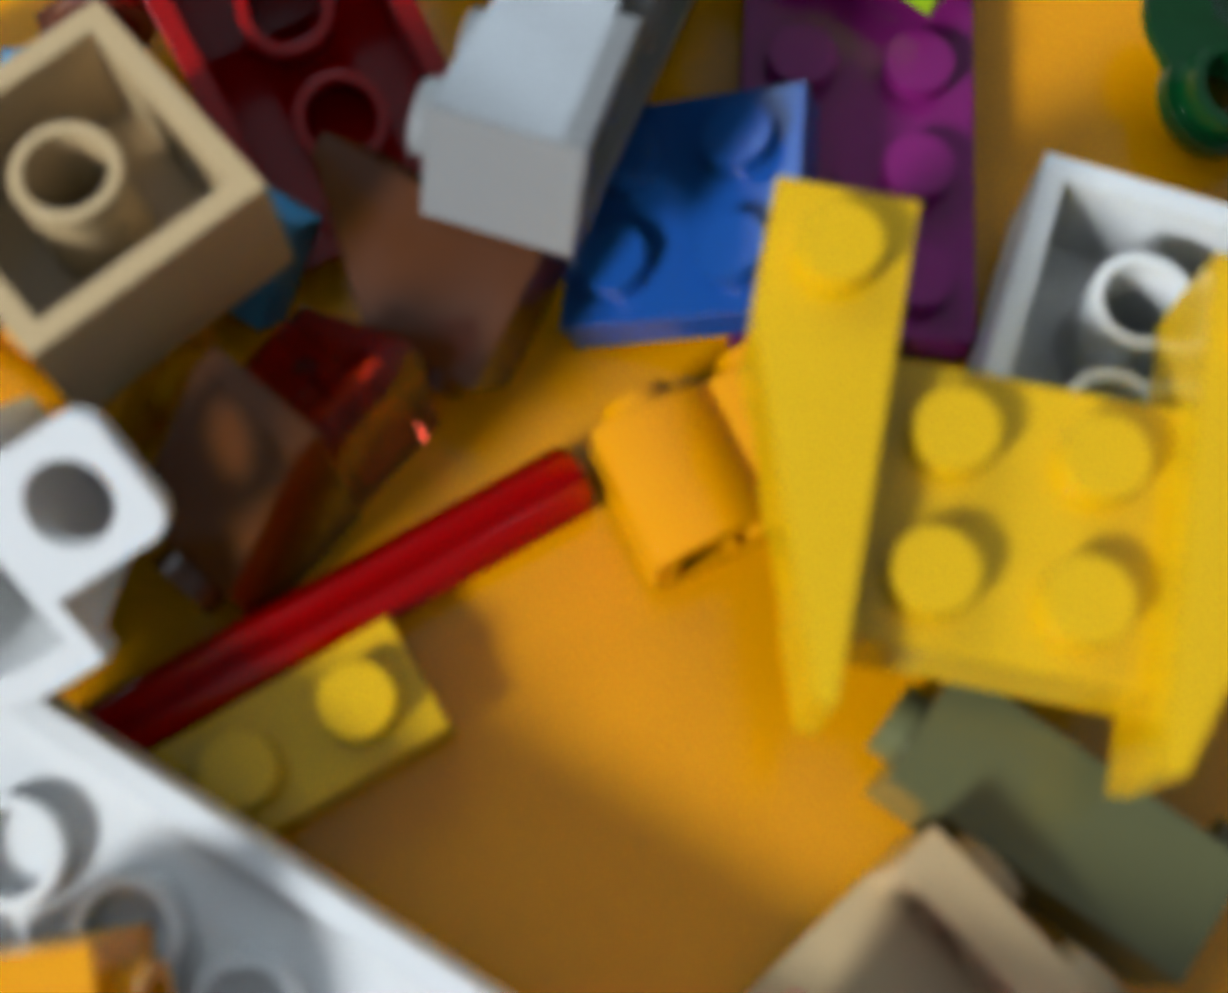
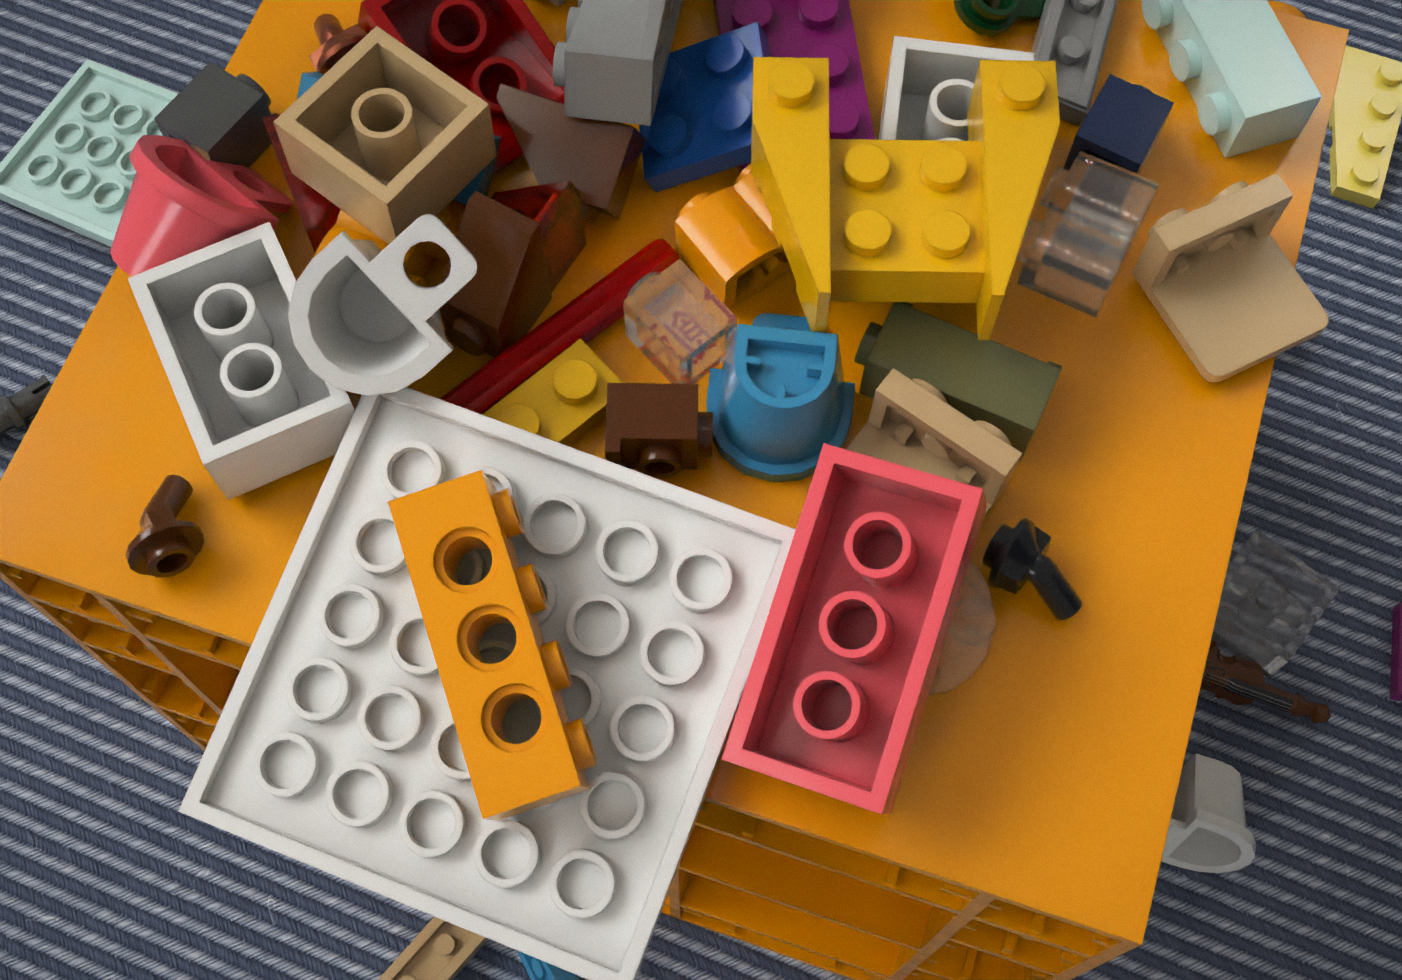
camera: 10 degrees left, 5 degrees down
(480, 824) = (656, 427): none -> reddish brown brick
(563, 620) = (678, 323): none -> clear brick
(711, 815) = (779, 398): none -> dark azure container

